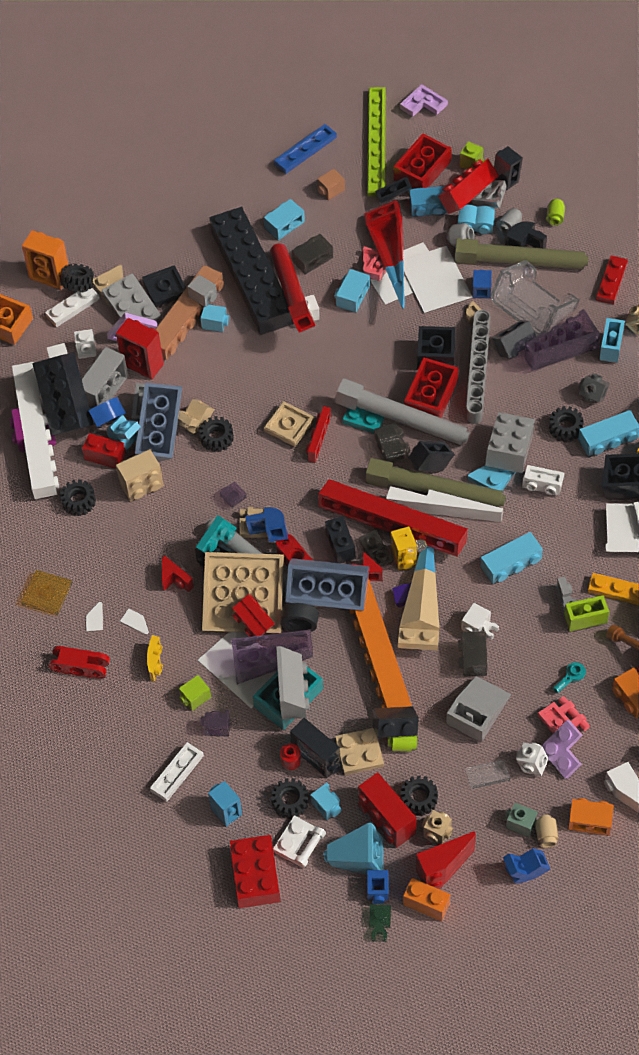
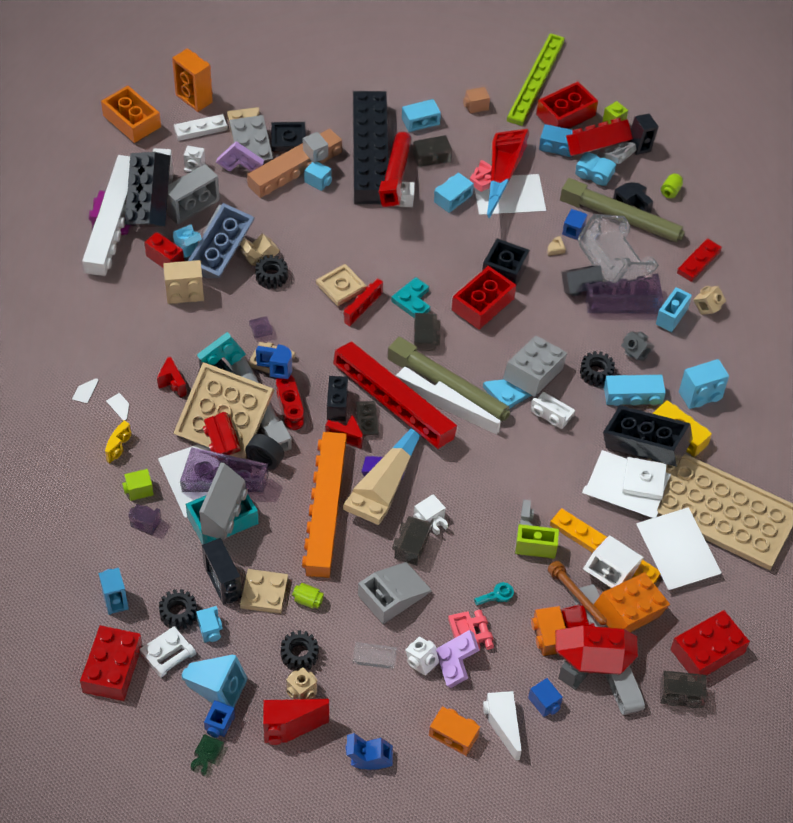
camera: 15 degrees right, 5 degrees down
(46, 592) = (53, 354): clear yellow plate -> none
(77, 277) = (213, 104): black tyre -> none
(78, 488) = (122, 291): black tyre -> none
(79, 662) = (50, 422): red piece -> none
(107, 412) = (180, 218): blue brick -> none
(140, 347) = (236, 176): red brick -> none
(176, 772) = (87, 548): white plate -> none
(290, 756) = (196, 571): red brick -> none
(305, 148) = (468, 65): blue plate -> none
(327, 584) = (303, 429): sand blue slope -> none
(353, 395) = (409, 278): light grey brick -> none
(386, 810) = (259, 652): red brick -> none
(393, 190) = (530, 120): black slope -> none
(395, 721) = (306, 574): black brick -> none
(405, 548) = (392, 424): yellow piece -> none
(422, 98) = (593, 55): lavender plate -> none
(426, 899) = (259, 749): orange brick -> none
(430, 456) = (455, 352): black brick -> none
(435, 279) = (535, 208): white sticker -> none
(460, 231) = (575, 173): light grey head -> none
(478, 367) = (537, 293): light grey beam -> none
(509, 219) = (626, 177): light grey brick -> none
(511, 558) = (489, 468): medium azure brick -> none
(521, 819) = (385, 708): sand green brick -> none
(546, 831) = (405, 728): tan brick -> none

